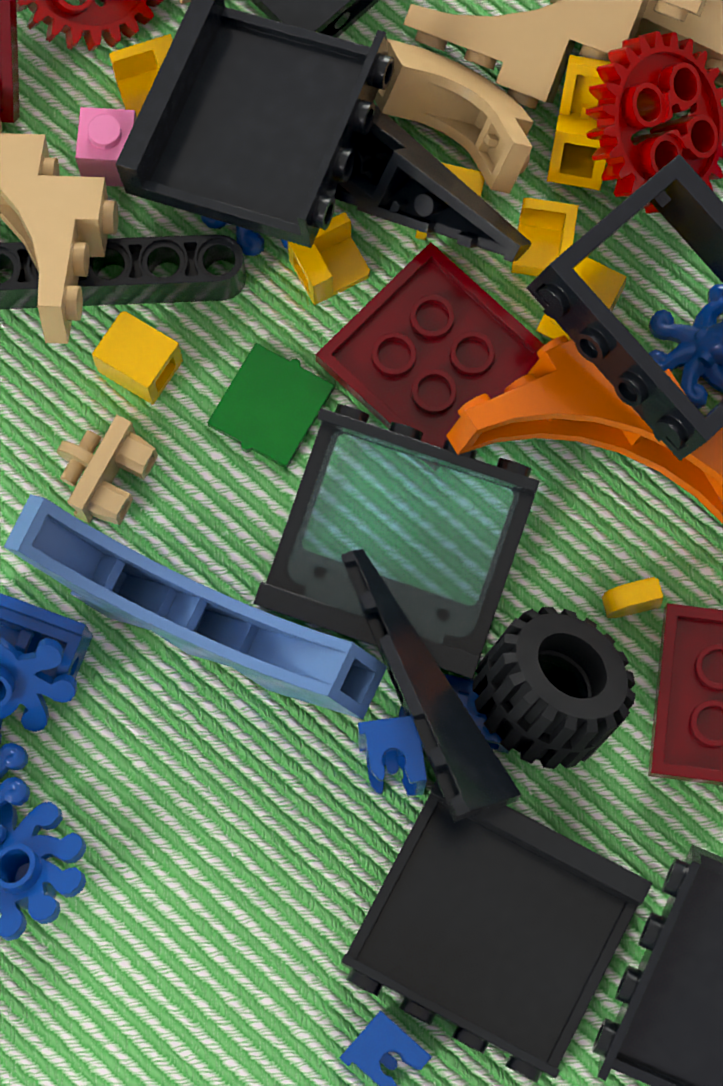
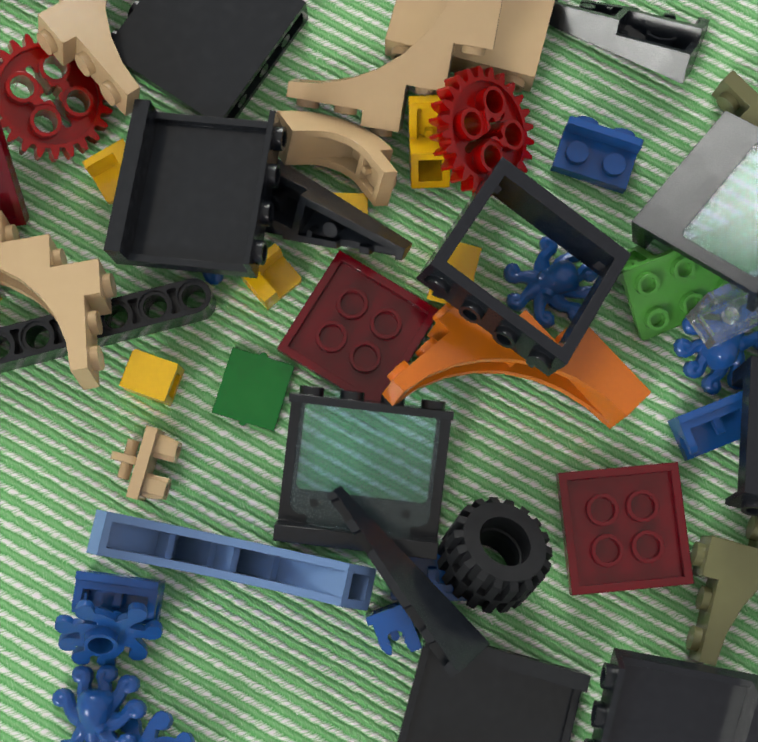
camera: 15 degrees left, 5 degrees up
(101, 140) = (90, 227): bright pink brick -> none
(549, 229) = (420, 227): yellow panel -> none
(633, 598) = (533, 474): yellow tile -> none

